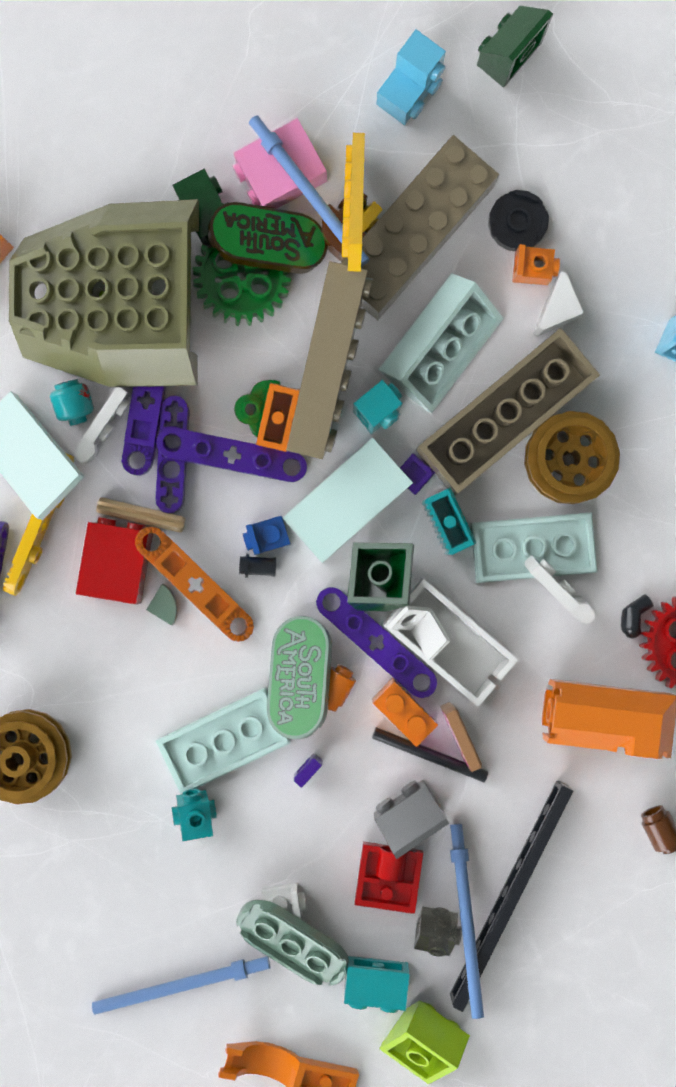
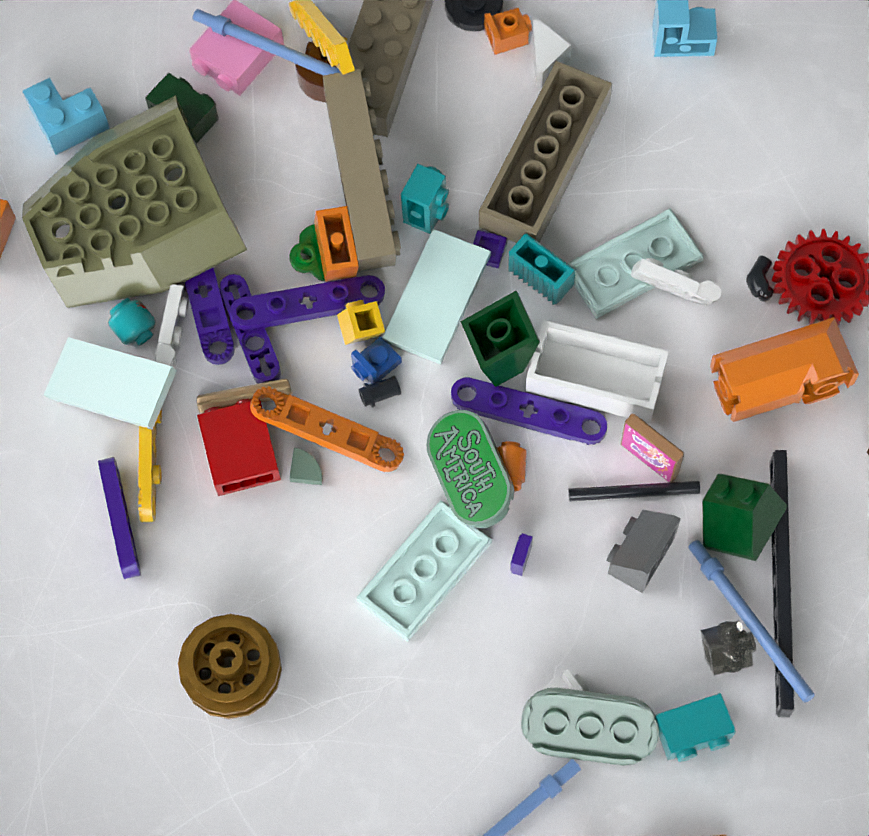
camera: 20 degrees left, 20 degrees down
(91, 171) = (67, 120): none -> medium azure brick
(194, 814) = (428, 644): teal brick -> none
(247, 302) = (245, 148): green gear -> none
(267, 237) = (253, 104): tile -> none
(267, 499) = (360, 322): none -> yellow brick
(388, 881) = (653, 621): red plate -> none
(404, 712) = (587, 456): orange brick -> none
(424, 628) = (565, 363): white bracket -> none
(426, 1042) = (775, 769): lime slope -> none
(442, 342) = (457, 123): light aqua slope -> none
(503, 831) = (740, 516): none -> dark green slope
(602, 446) = (618, 189): pearl gold wheel -> none

